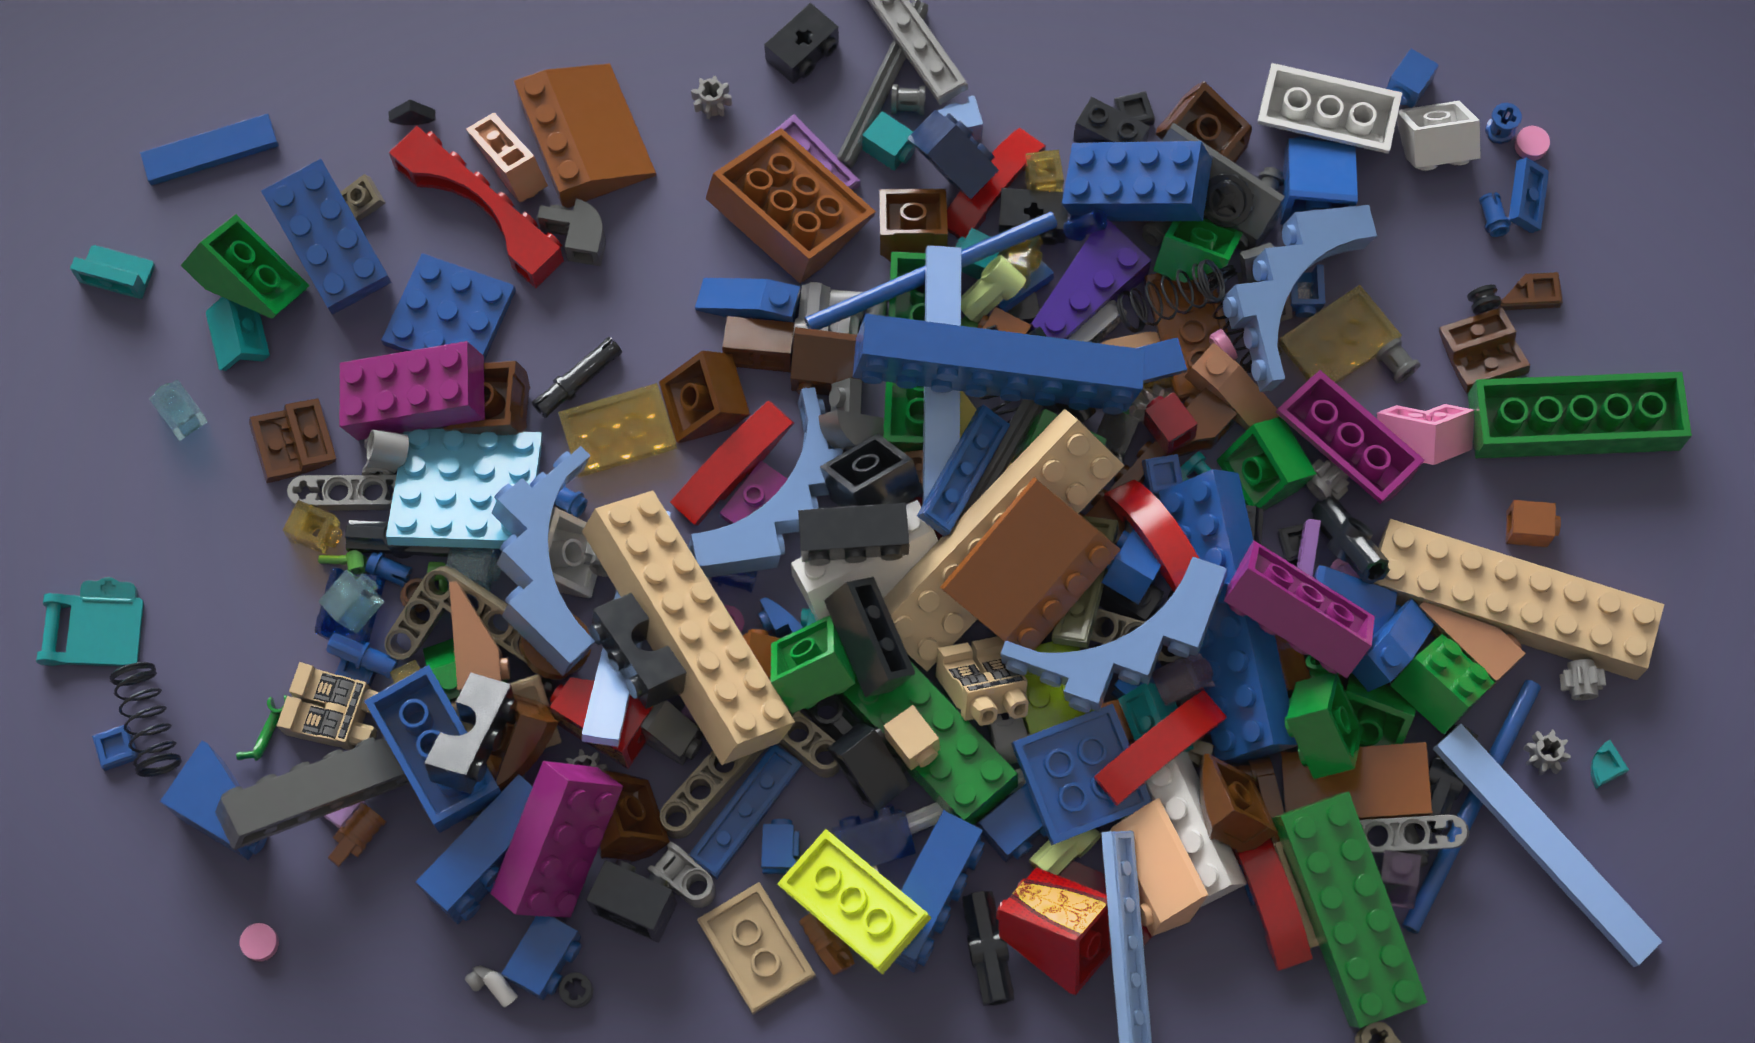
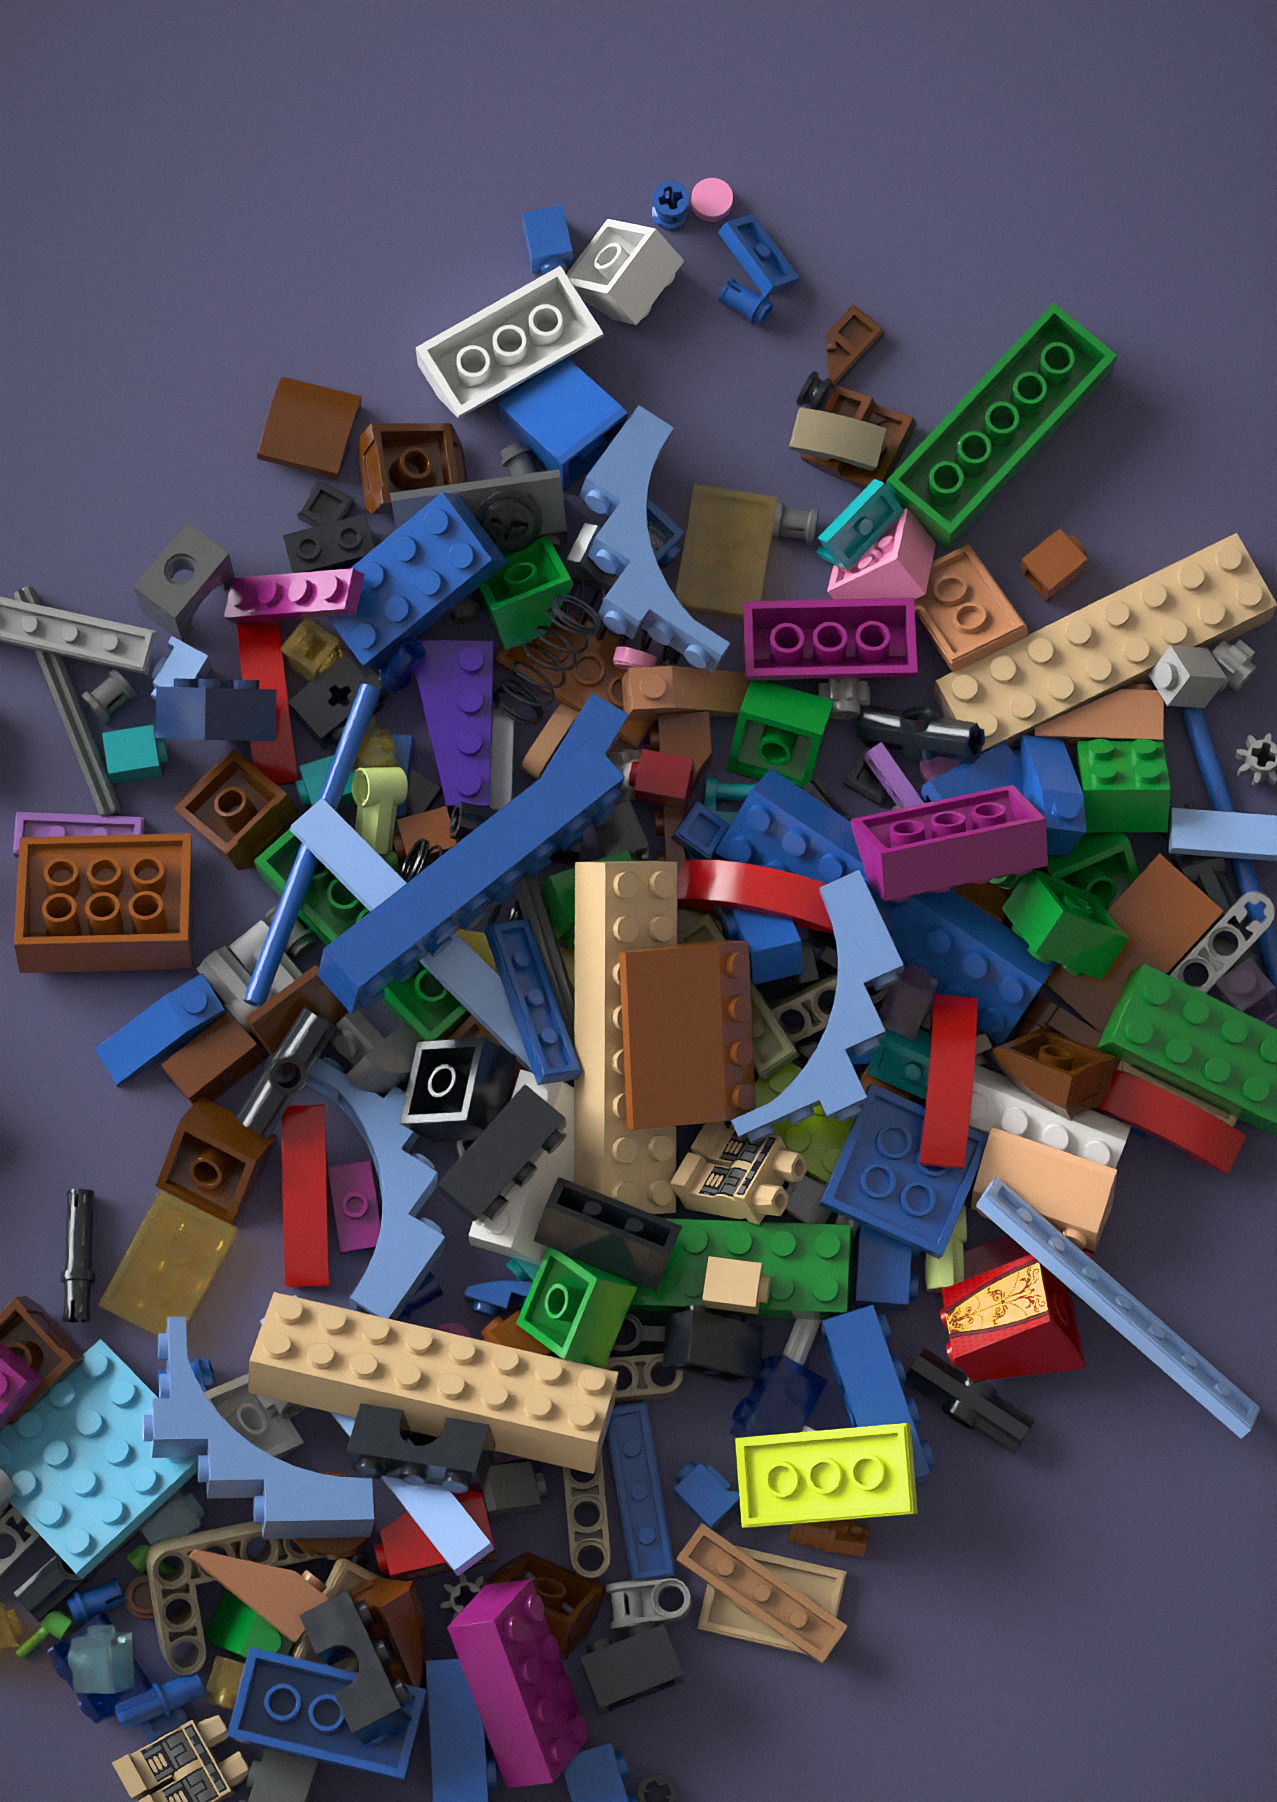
camera: 45 degrees left, 5 degrees up
(751, 935) = (761, 1593): none -> medium nougat plate
(766, 386) = (270, 1097): none -> black piece
(996, 79) = (175, 603): none -> dark grey piece
(1063, 132) = (294, 596): none -> magenta plate
(1169, 59) = (309, 427): none -> reddish brown slope
(1434, 392) = (859, 526): none -> teal panel
(1450, 498) = (966, 610): none -> nougat tile
(1471, 332) = (837, 437): none -> dark tan slope
(1548, 658) = (1187, 676): none -> light grey brick

